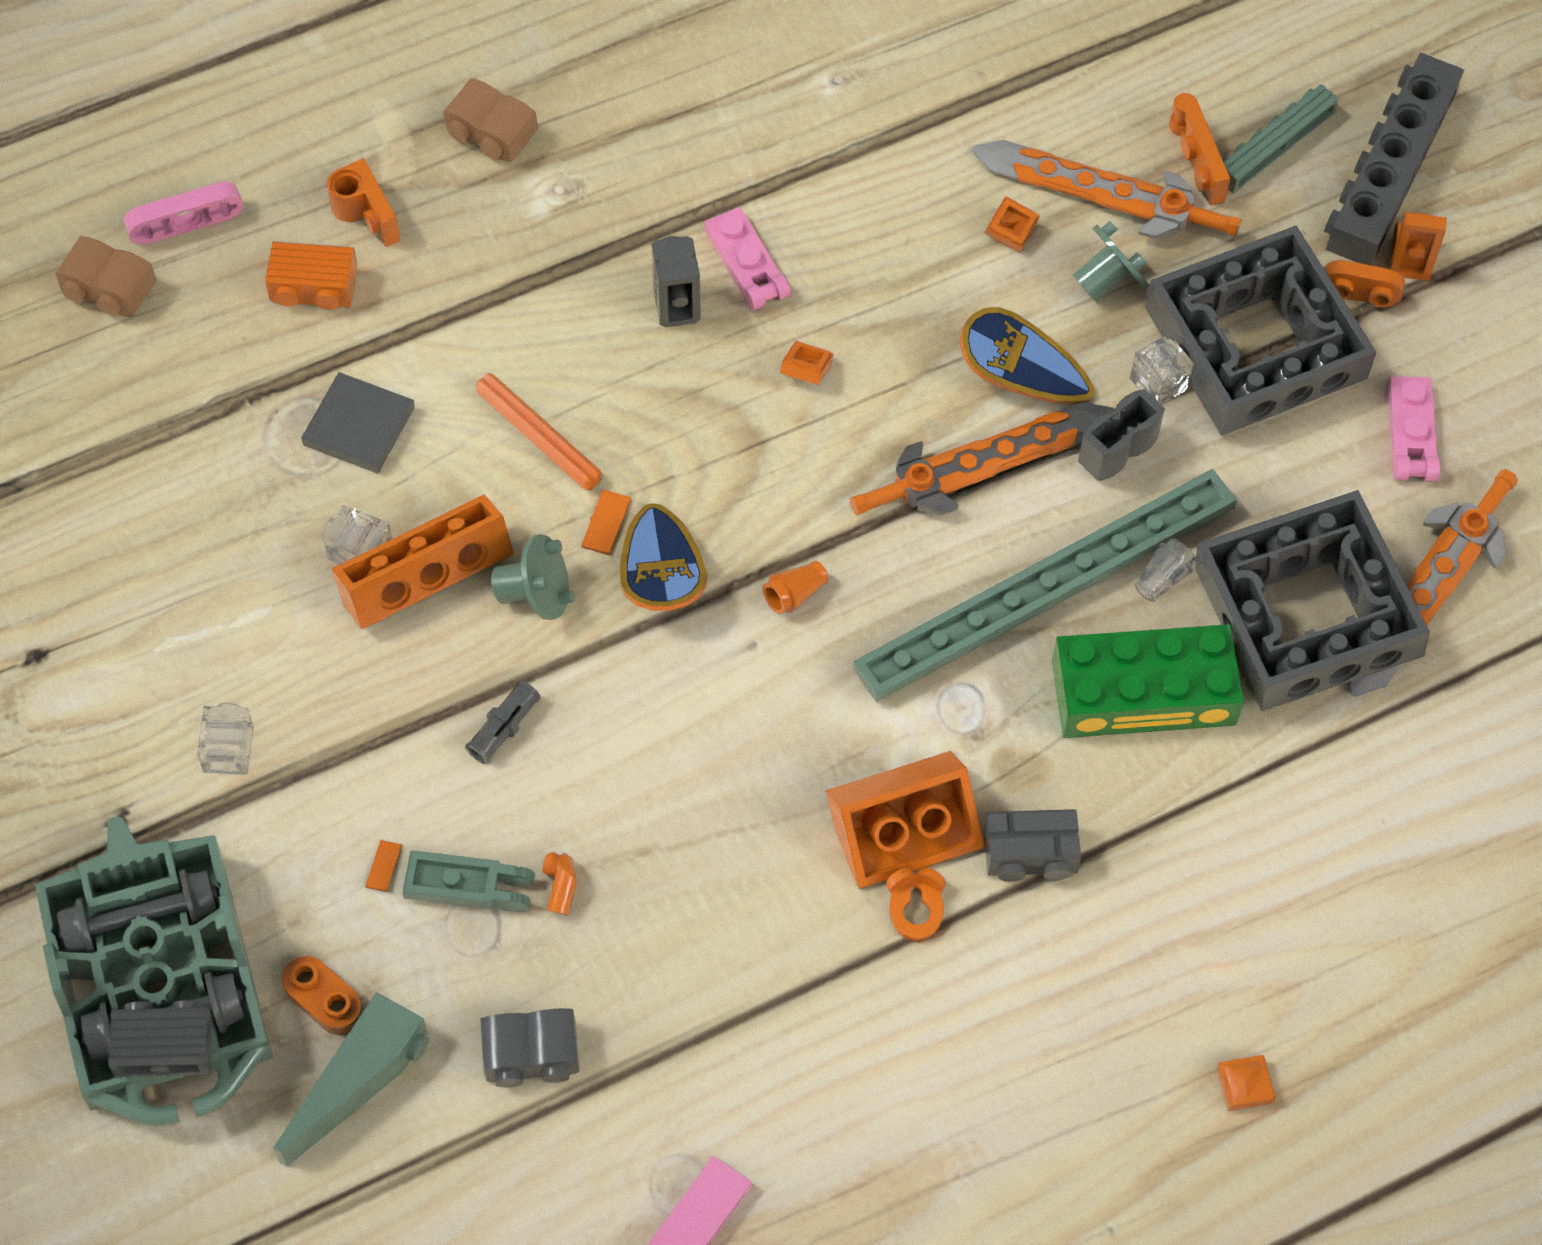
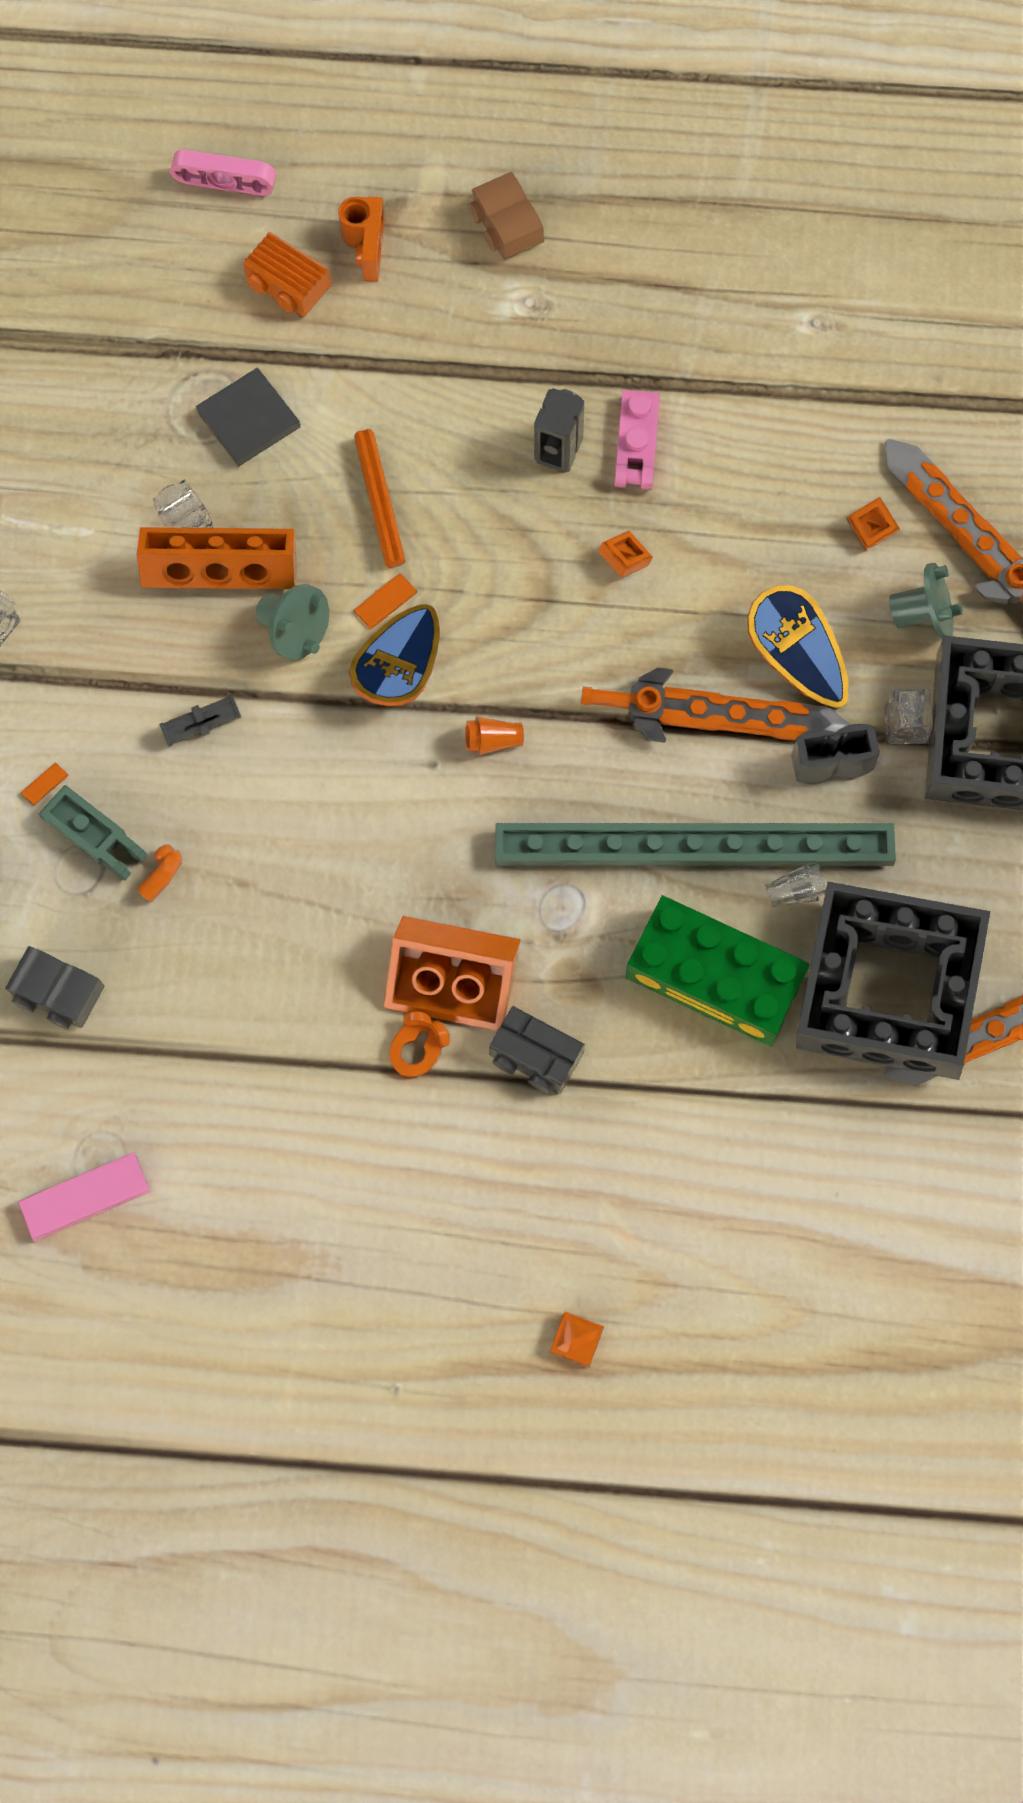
camera: 35 degrees right, 10 degrees up
(105, 277) = (131, 195): medium nougat brick -> none

